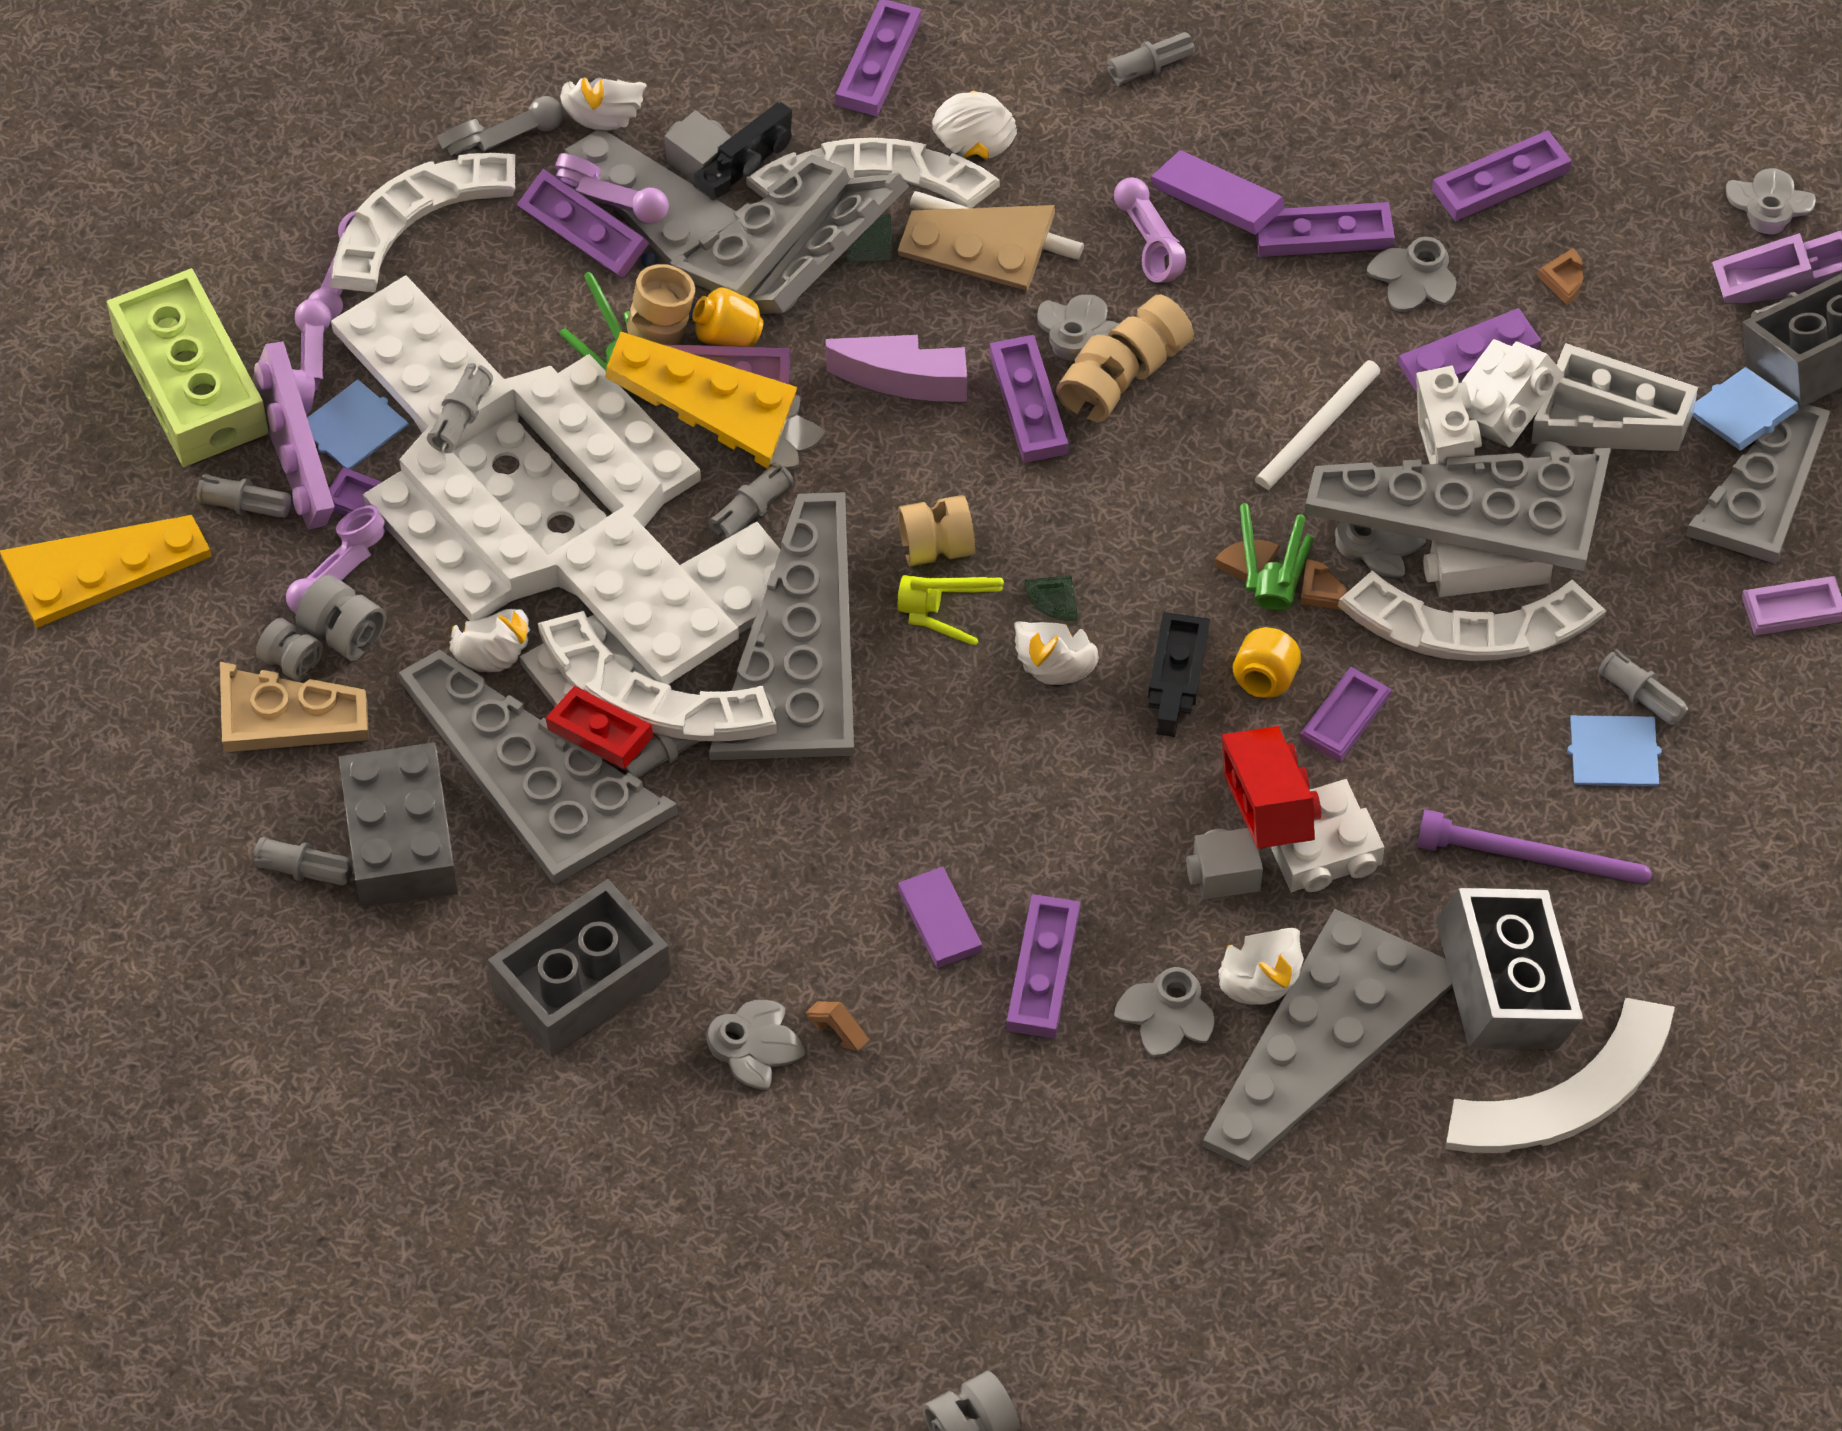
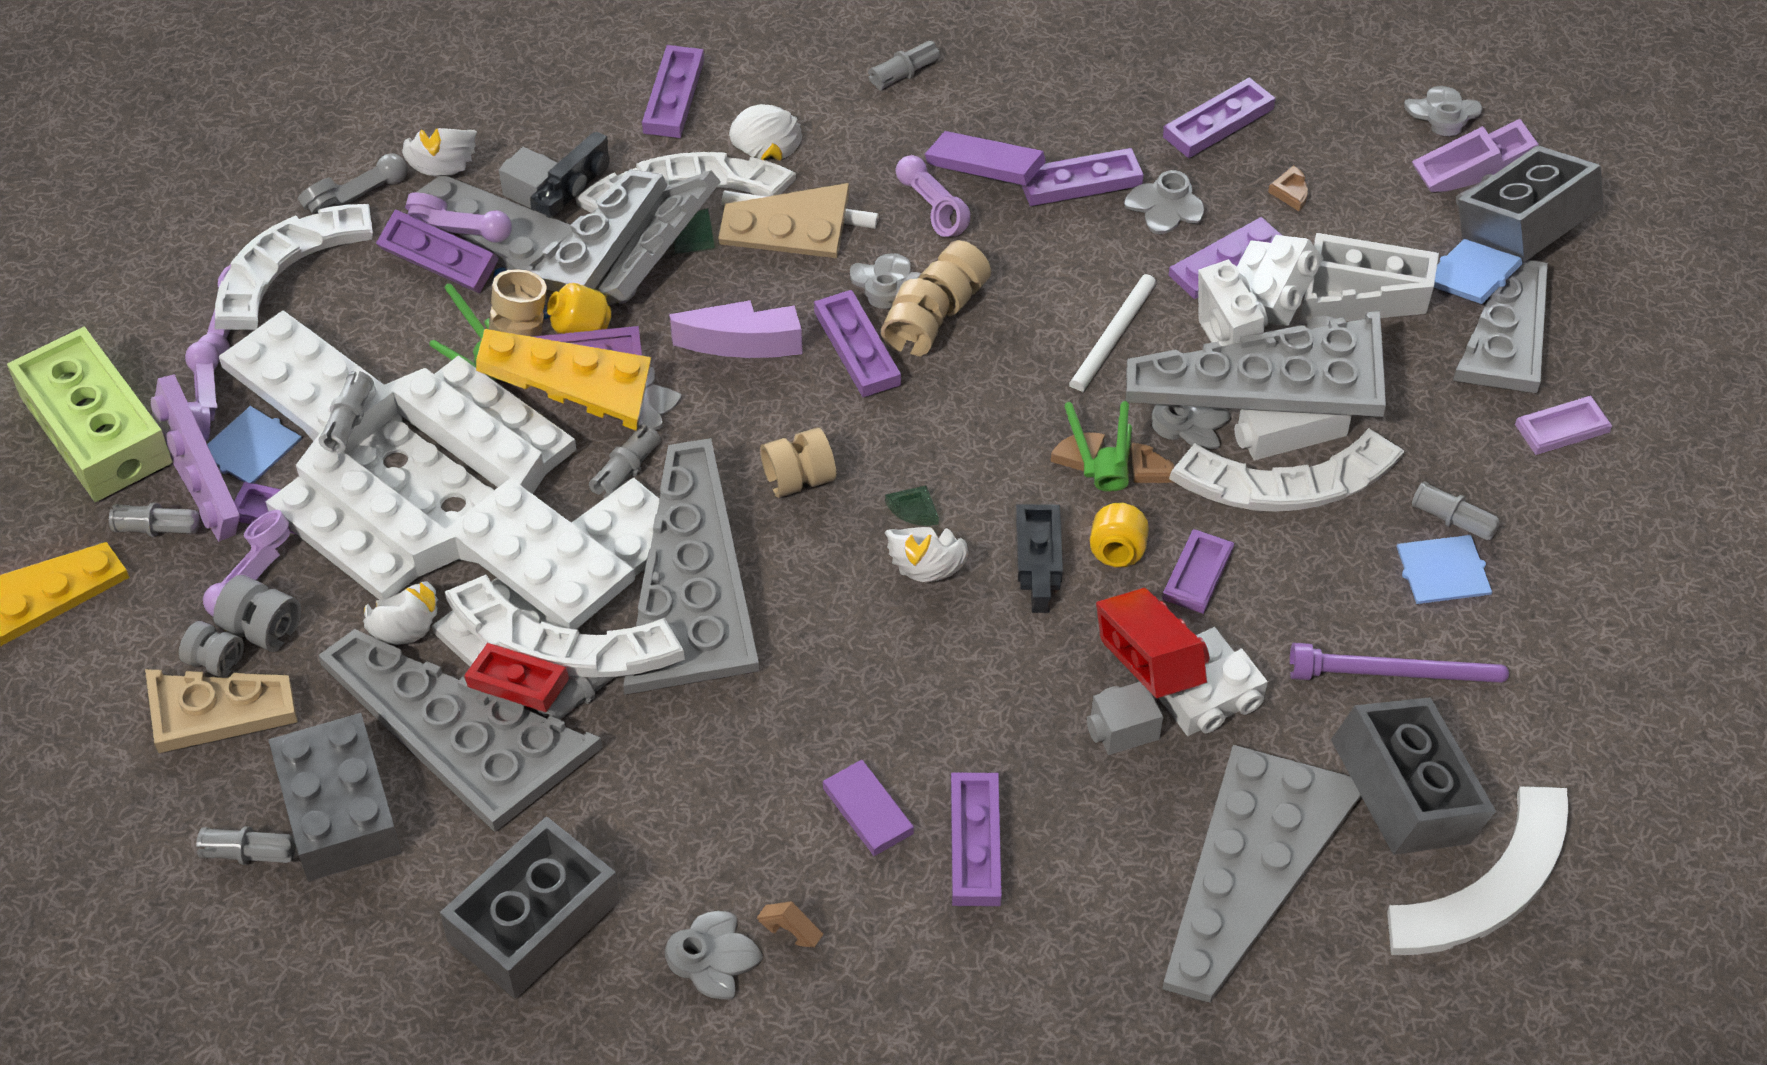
camera: 10 degrees left, 5 degrees down
(923, 595) = (795, 519): neon yellow plant -> none
(1167, 1018) = (1100, 870): light grey plate -> none
(1263, 967) = (1182, 808): white hair -> none

